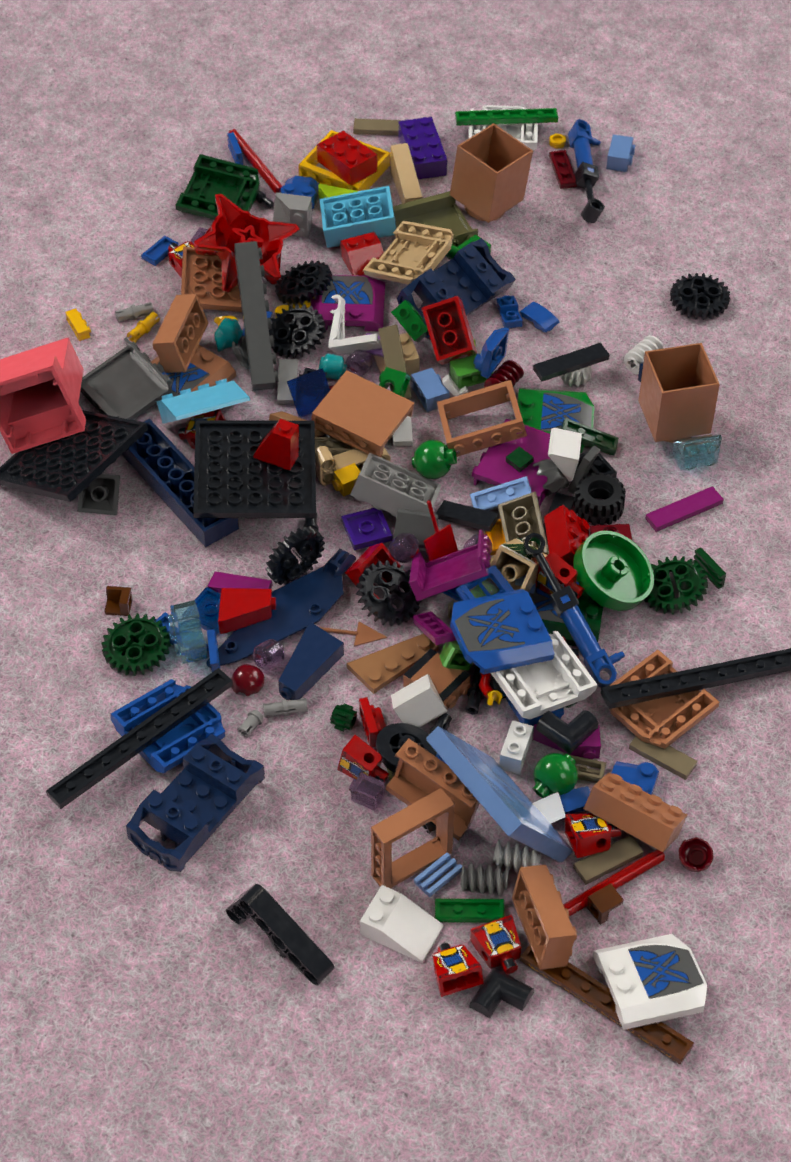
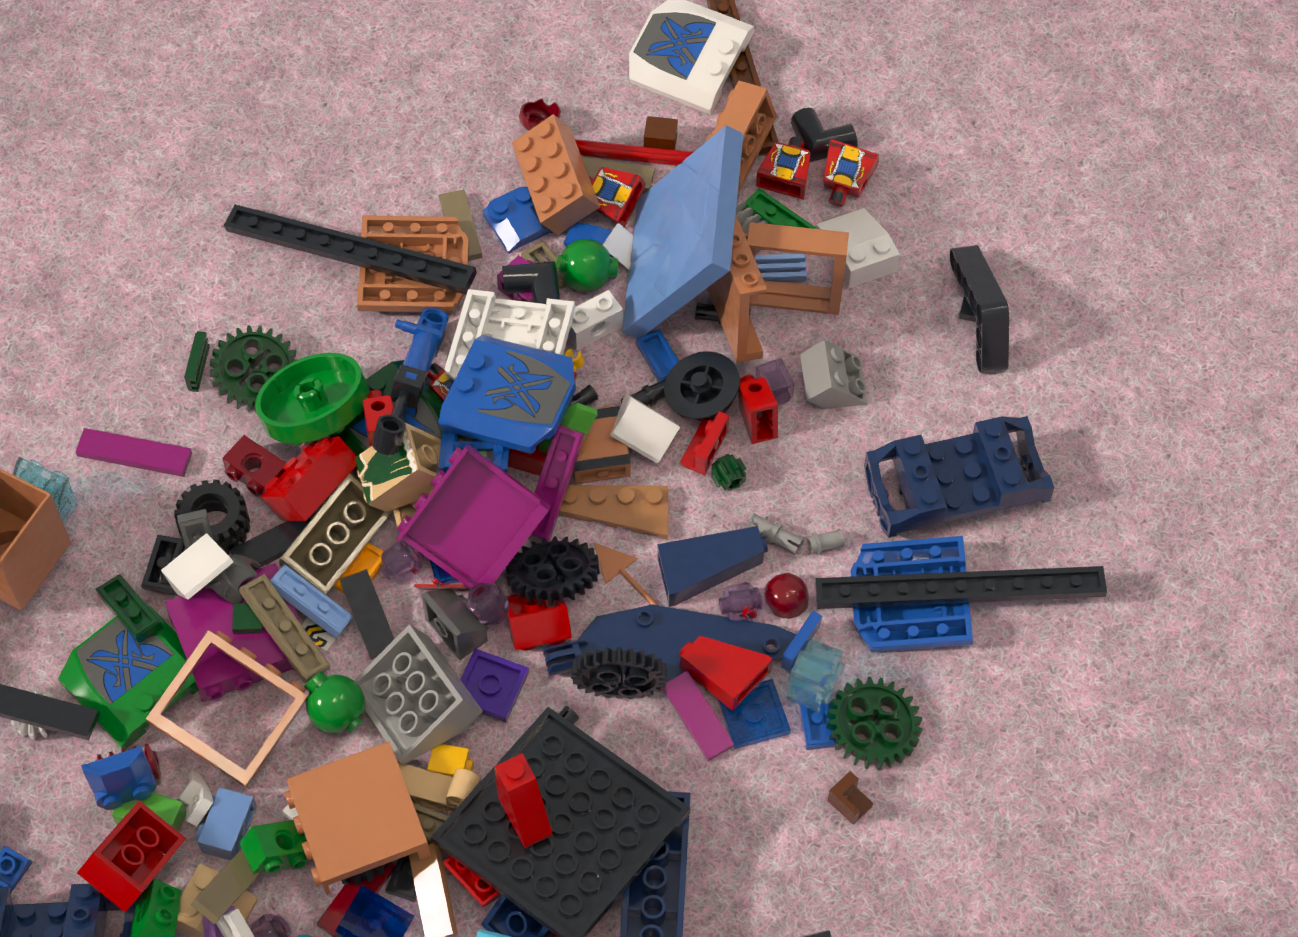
camera: 140 degrees left, 10 degrees up
(333, 821) = (833, 376): none -> light grey slope
(494, 465) = (284, 628): none -> dark tan tile

